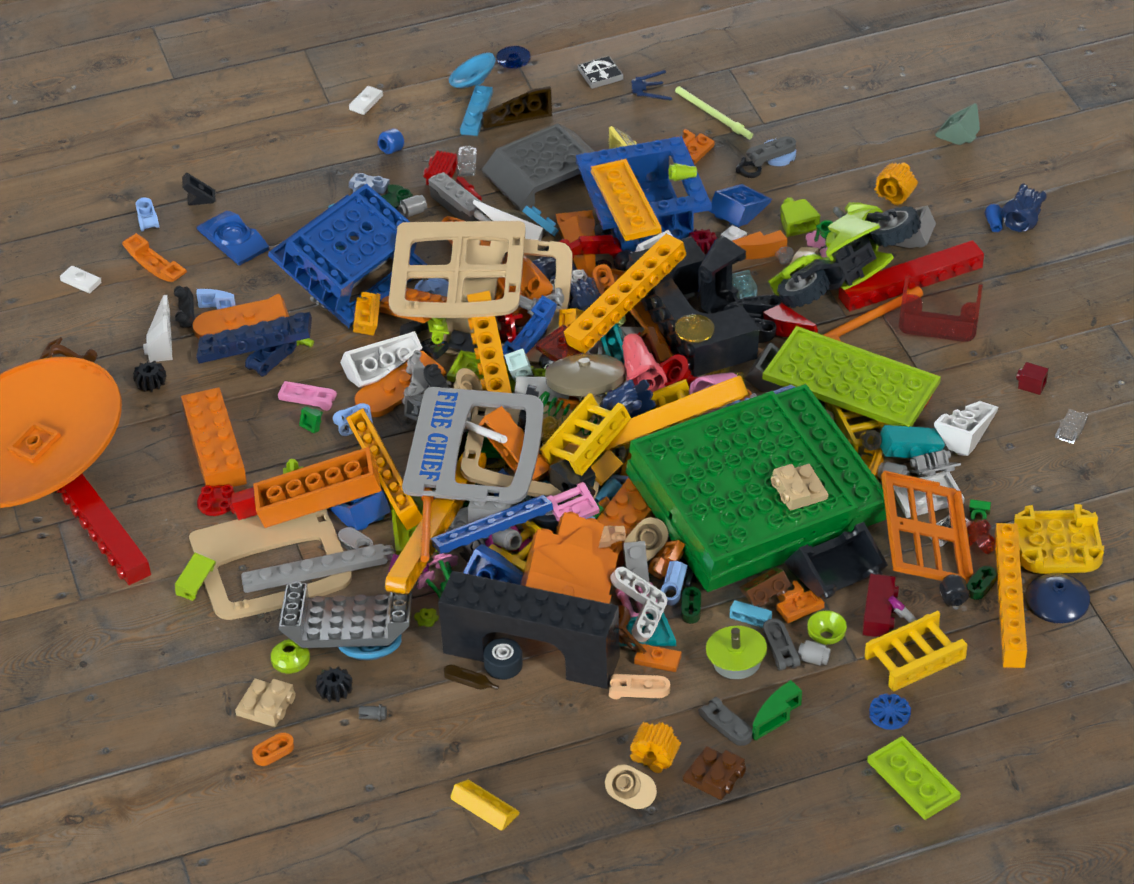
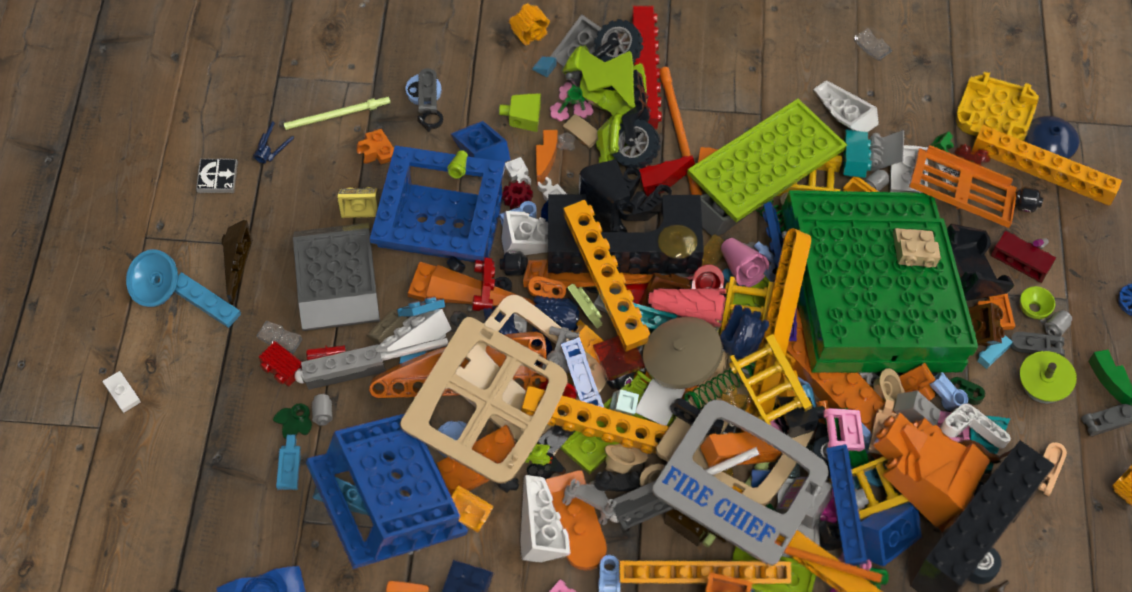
camera: 70 degrees left, 15 degrees up
(377, 183) = (261, 438): sand blue plate -> none
(391, 141) = (209, 392): blue head -> none
(513, 57) = (149, 230): clear blue dish -> none
(626, 200) = (471, 223): light orange plate -> none
(658, 658) = (1020, 432): orange plate -> none
(874, 440) = (844, 179): clear smoke cone -> none
(916, 668) = (1096, 244): yellow fence -> none
(938, 325) = (714, 71): clear red windscreen -> none
(985, 584) = (1020, 178): dark green beam -> none
(1032, 378) = (810, 43): dark red brick -> none

